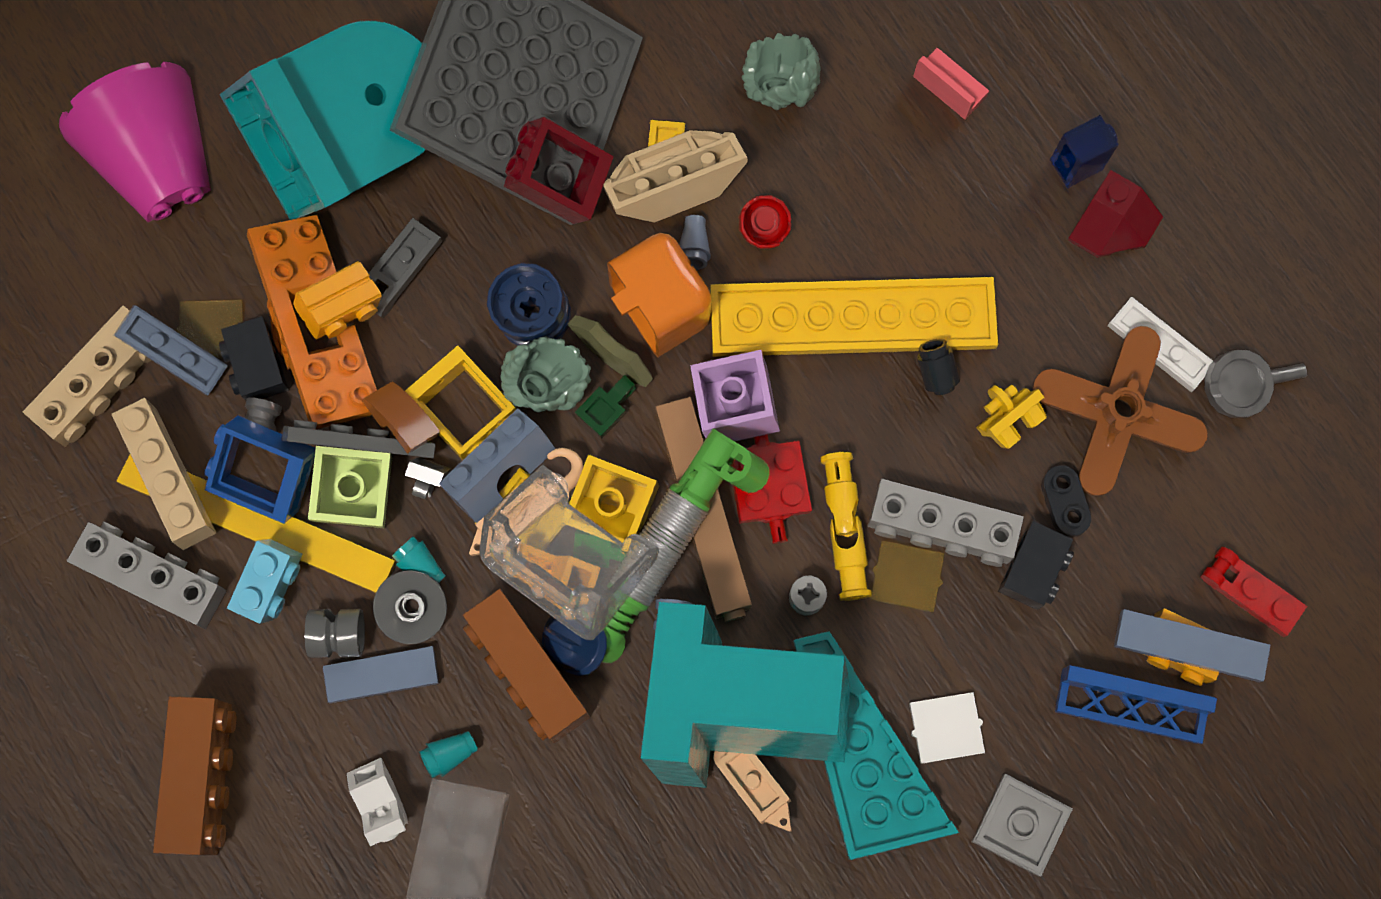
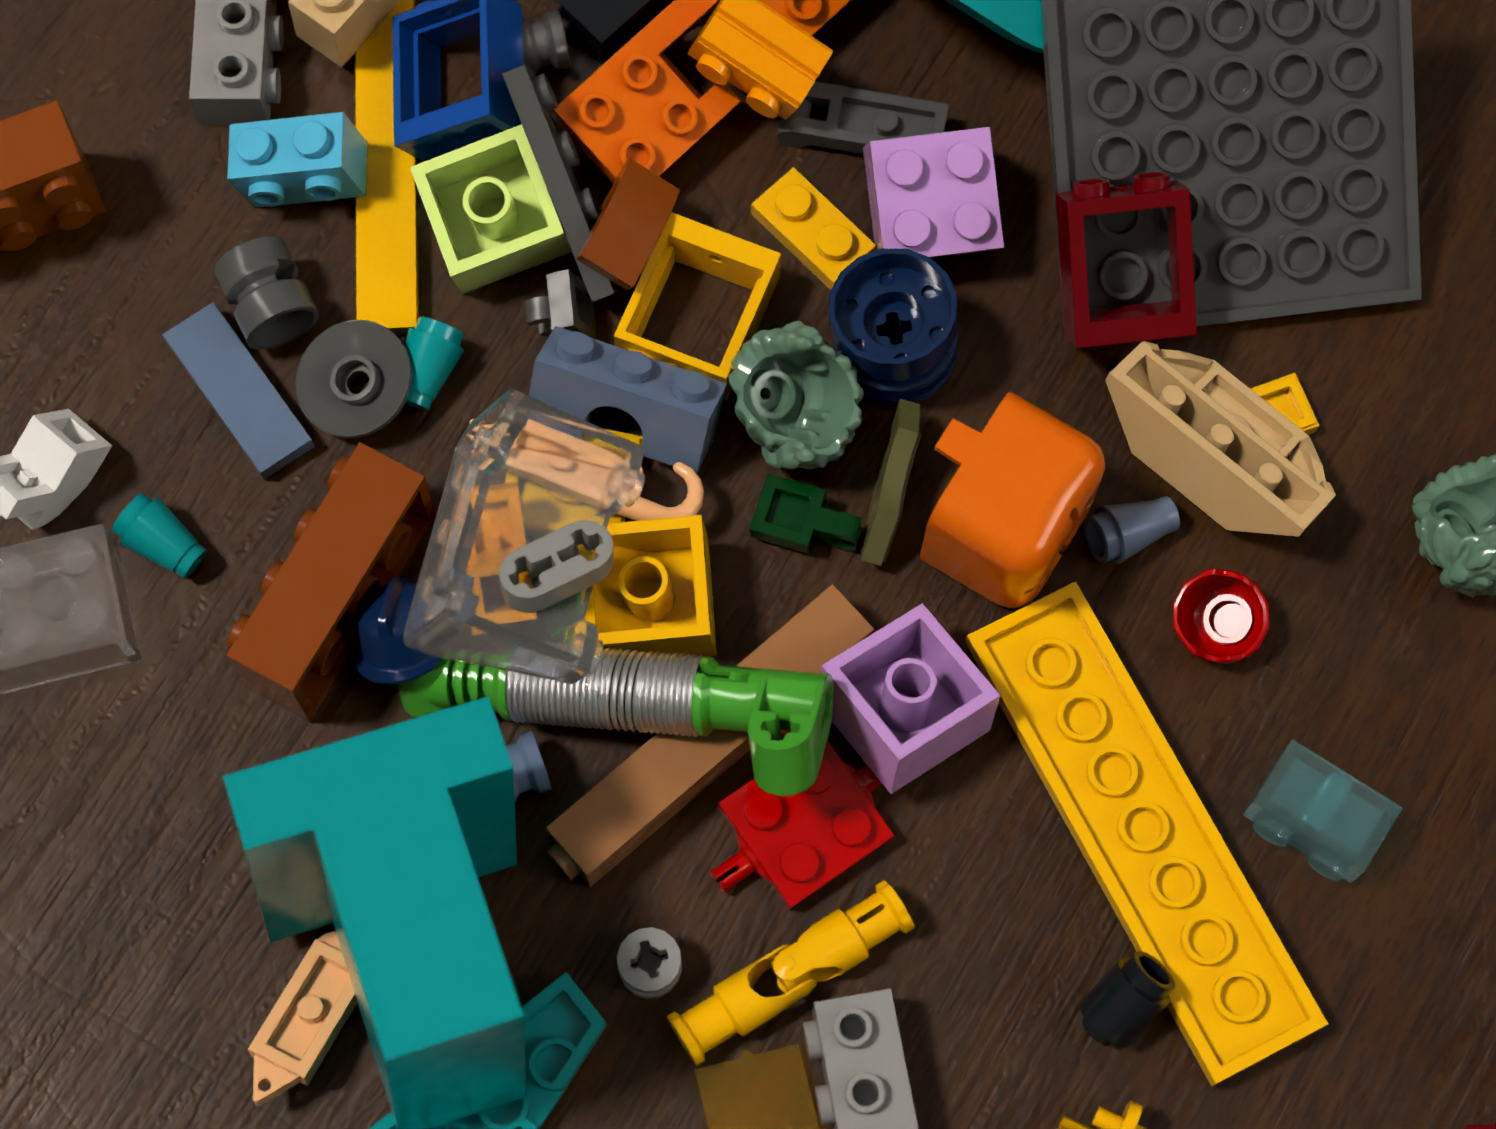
camera: 65 degrees right, 5 degrees down
(444, 324) = (810, 227): none -> yellow plate
(464, 251) = (934, 193): none -> lavender brick
(593, 541) = (556, 565): none -> light grey beam
(887, 226) = (1321, 813): none -> clear light blue brick

